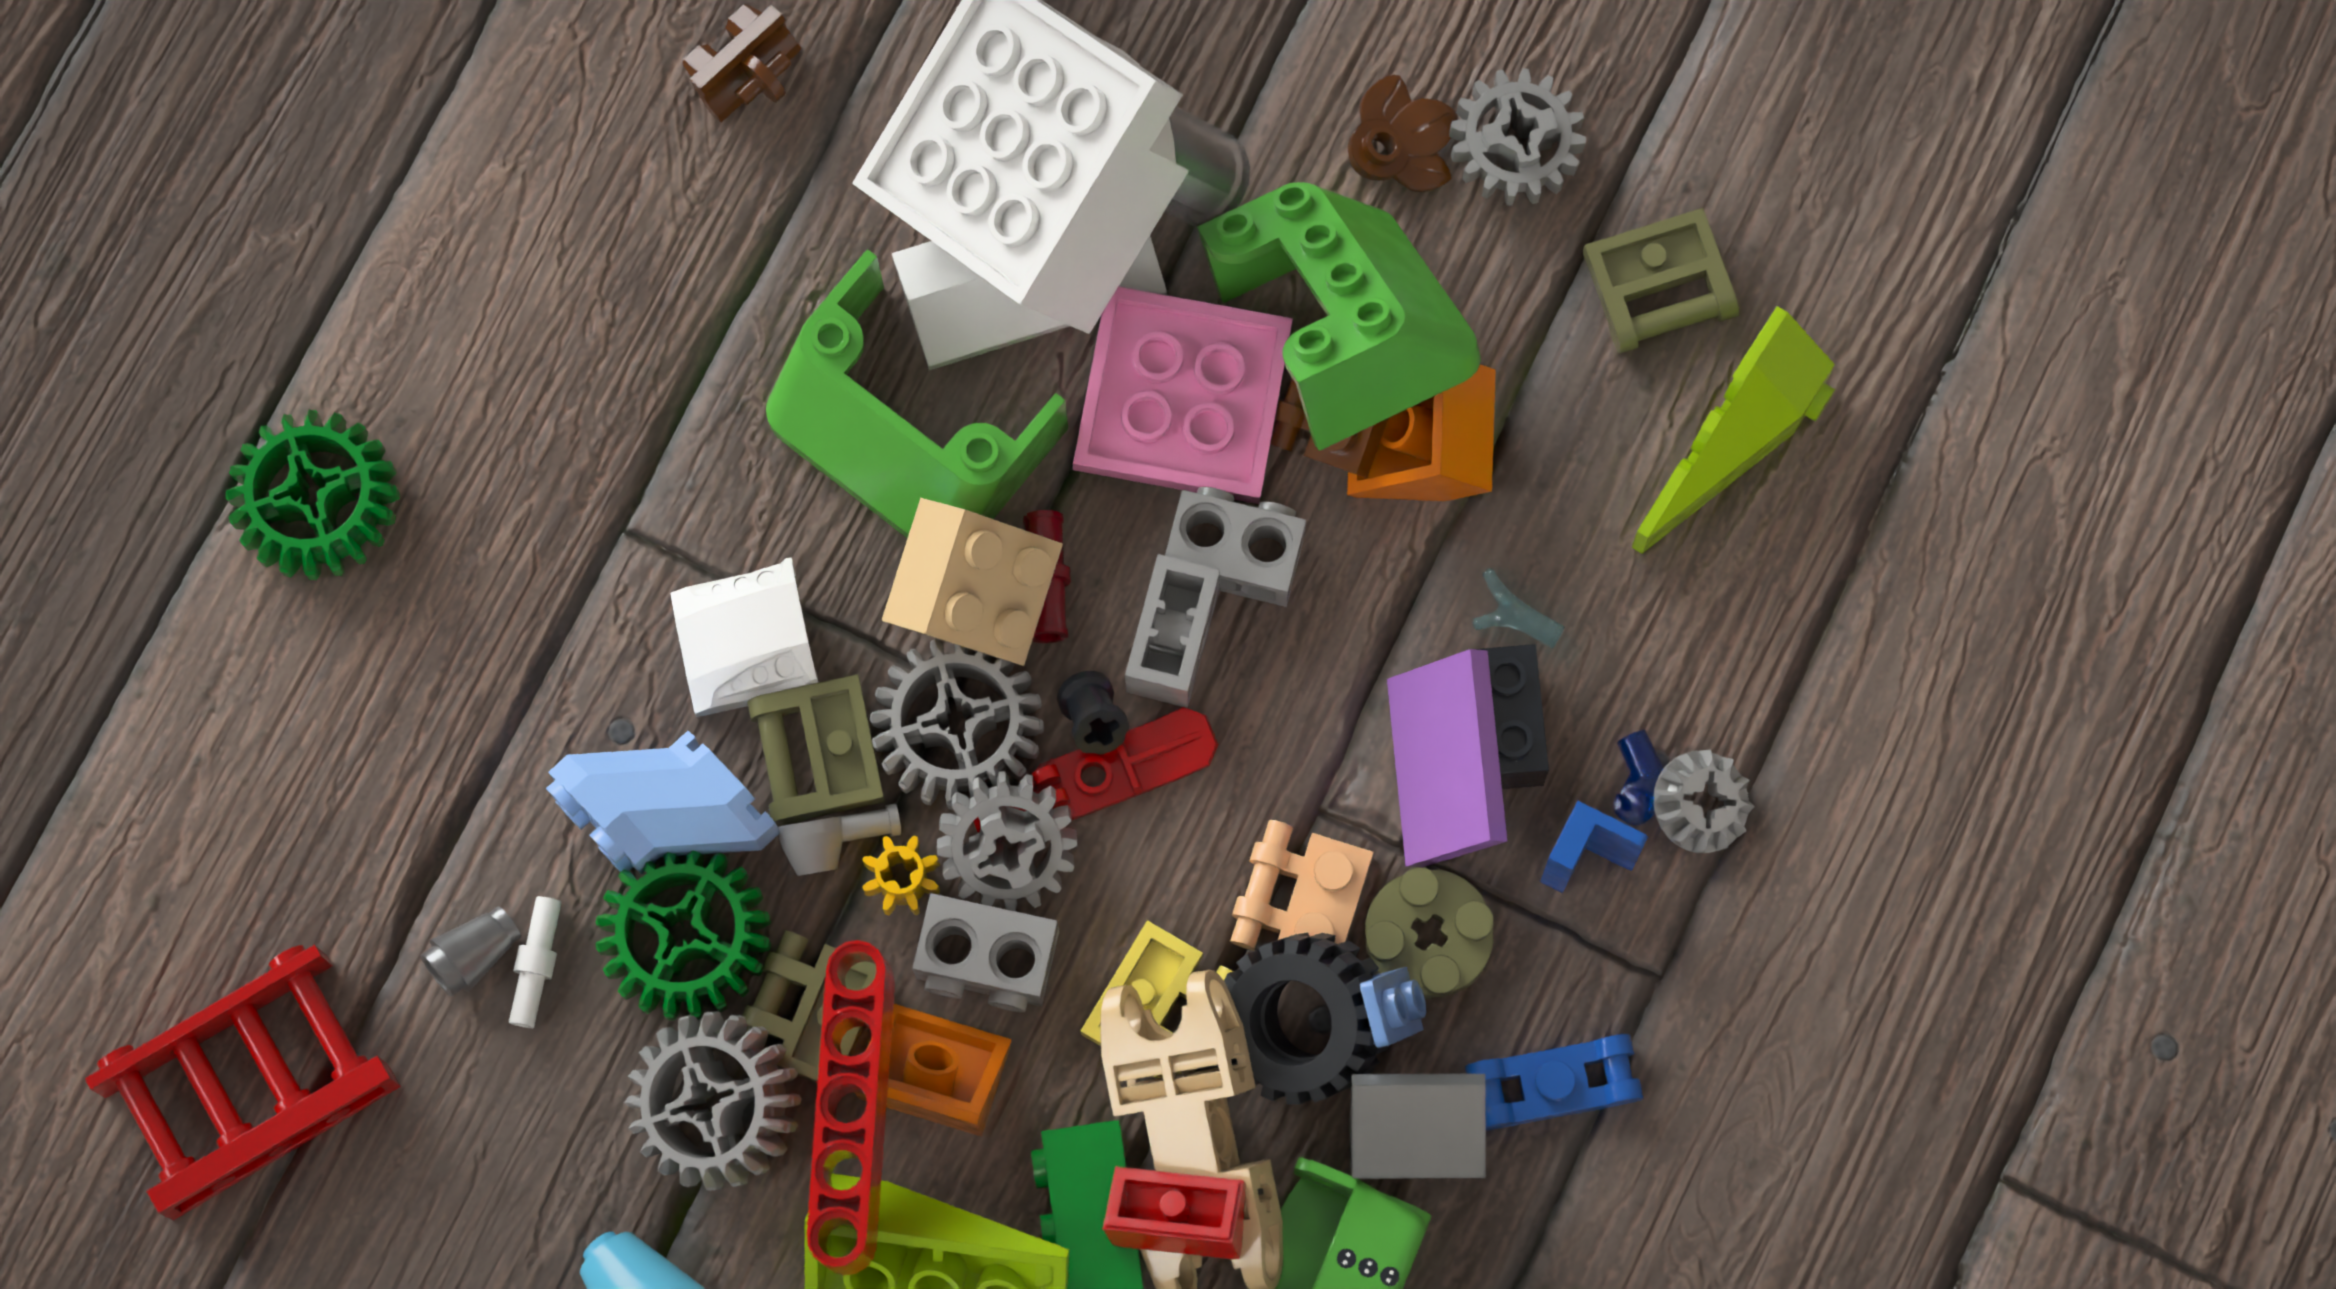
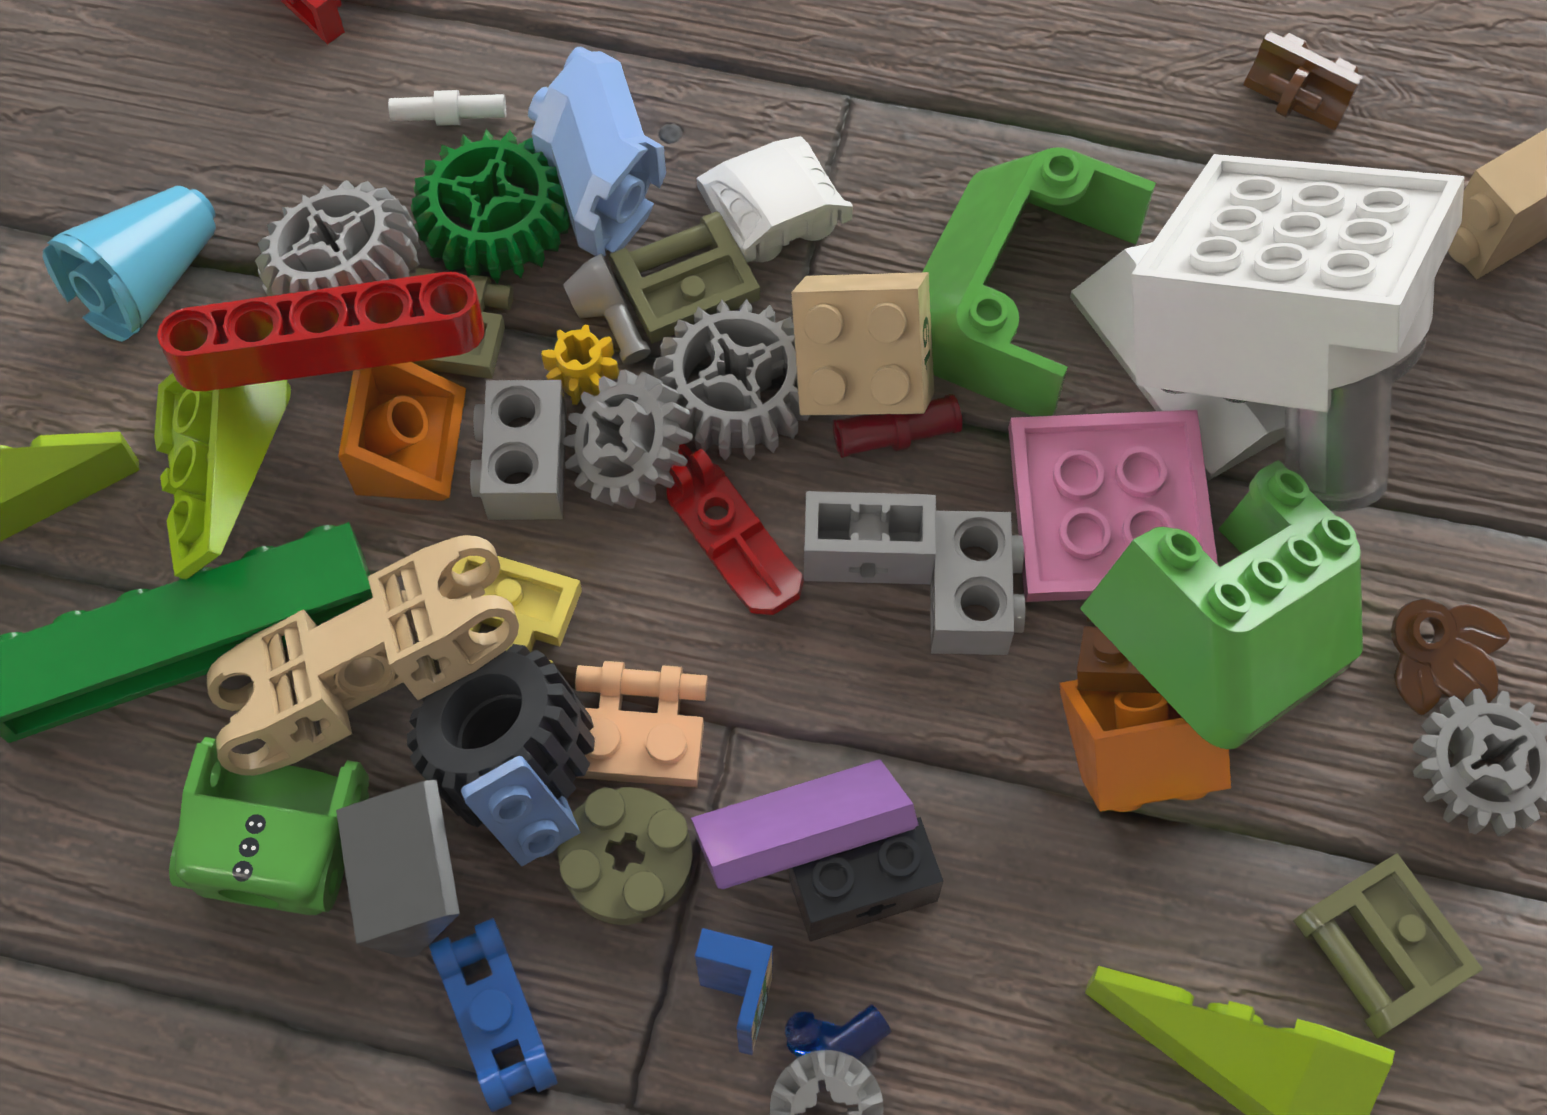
camera: 75 degrees right, 10 degrees down
(470, 950) = (445, 55): flat silver cone -> none
(1089, 703) = (762, 490): black bush -> none
(1176, 1213) = (274, 647): red slope -> none
(1517, 614) = (980, 873): clear light blue bar -> none

